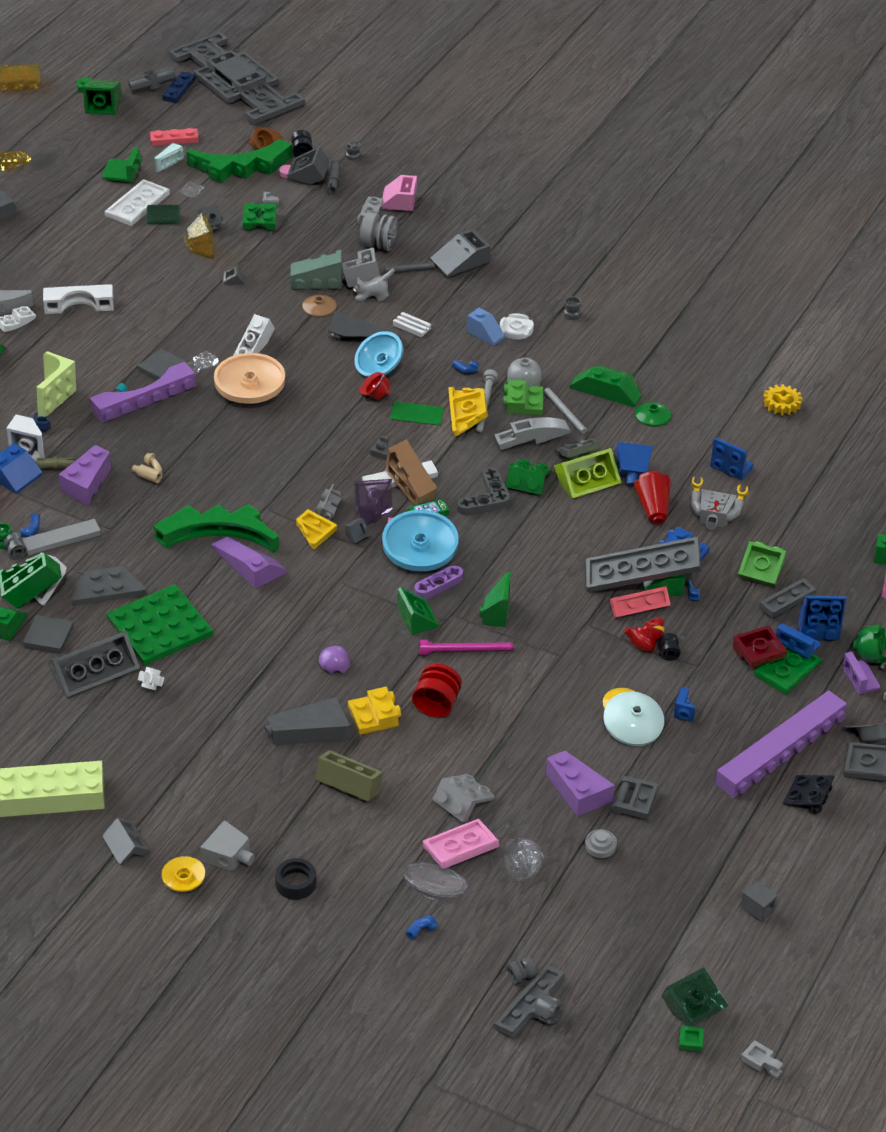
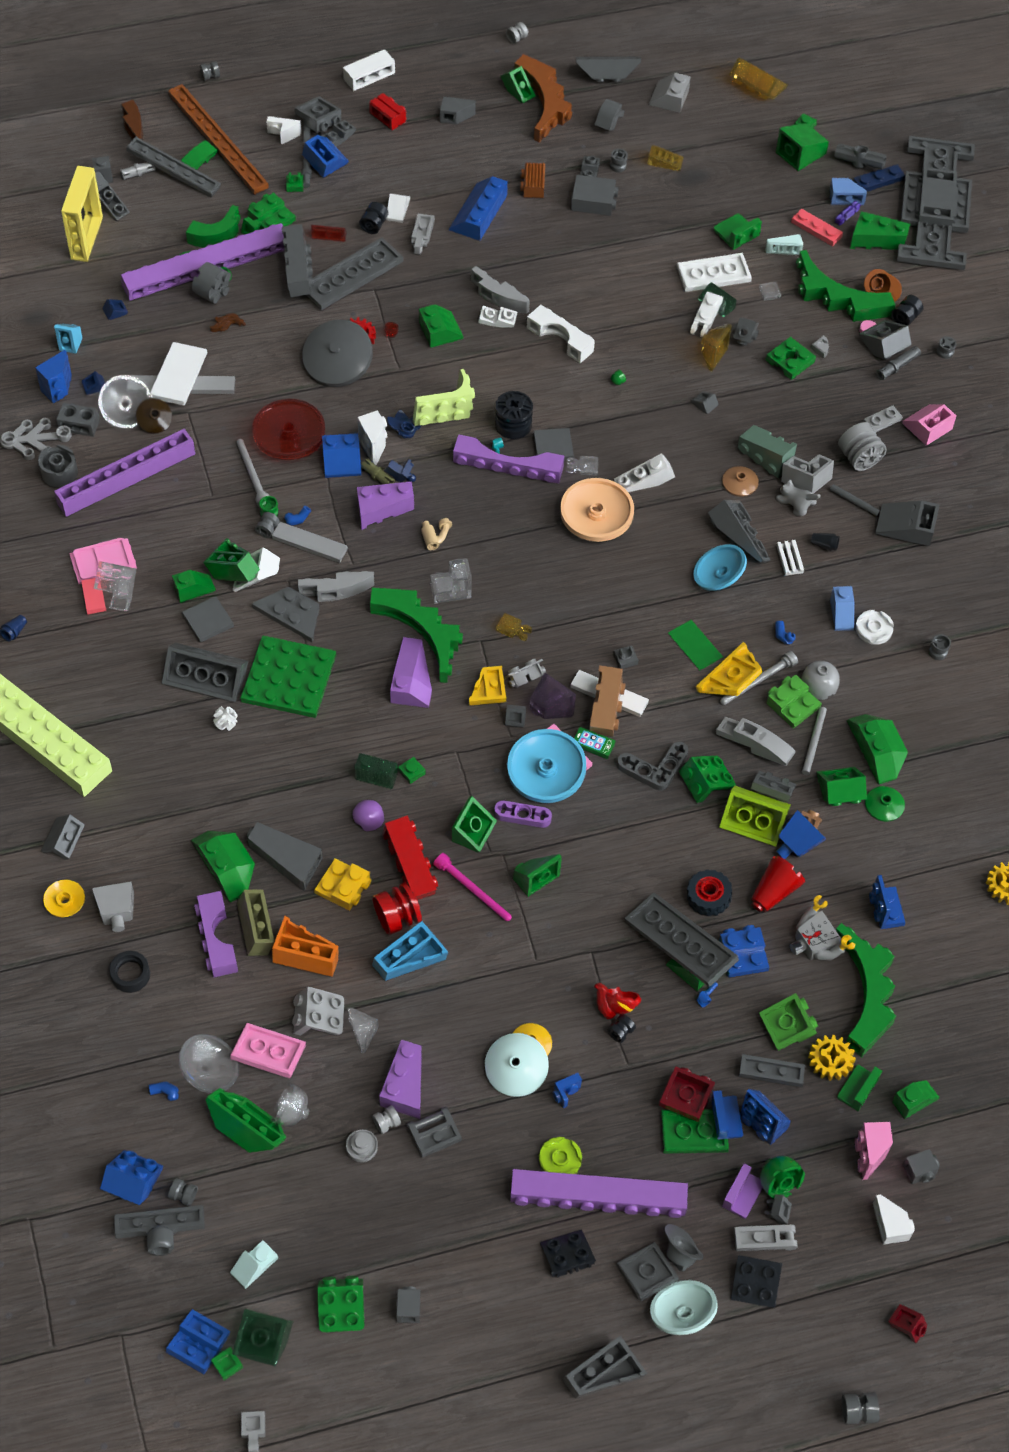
camera: 45 degrees right, 15 degrees up
(73, 448) = (401, 472): none -> dark blue piece
(113, 362) = (513, 415): none -> black wheel
(124, 546) = (344, 586): none -> light grey slope
(155, 298) = (618, 377): none -> green hinge
(167, 225) = (707, 313): none -> white hinge
(169, 105) = (845, 191): none -> medium blue slope
(184, 117) = (847, 213): none -> dark purple axle
(209, 483) = (452, 584): none -> clear brick
(222, 113) = (879, 232): none -> green wedge
(271, 762) = (226, 861): none -> green wedge
(281, 486) = (511, 625): none -> clear yellow plate
(305, 629) = (376, 771): none -> clear green brick
(327, 614) = (411, 770): none -> green plate
(349, 817) = (222, 955): none -> medium lavender arch
(376, 386) = (685, 595): red piece -> none
(396, 655) = (409, 856): none -> red wedge
(406, 764) = (304, 950): none -> orange wedge
(423, 299) = (826, 540): none -> black cone
(474, 992) = (131, 1177): none -> blue slope
(479, 709) = (409, 953): none -> dark azure wedge
(506, 779) = (363, 1027): none -> clear slope
(510, 895) = (244, 1121): none -> green wedge
(596, 815) = (387, 1119): none -> light grey wheel
(618, 419) = (842, 785): none -> green slope
(618, 534) = (709, 903): none -> black wheel
(626, 971) = (253, 1264): none -> light aqua slope
(640, 602) = (649, 968): coral plate -> none
(653, 1046) = (197, 1341): none -> blue slope
(715, 938) = (340, 1304): none -> green bracket
(728, 746) = (560, 1156): none -> lime tile
(787, 509) = (876, 990): none -> green arch
(812, 563) = (841, 1055): none -> yellow gear
(848, 567) = (859, 1086): none -> green panel

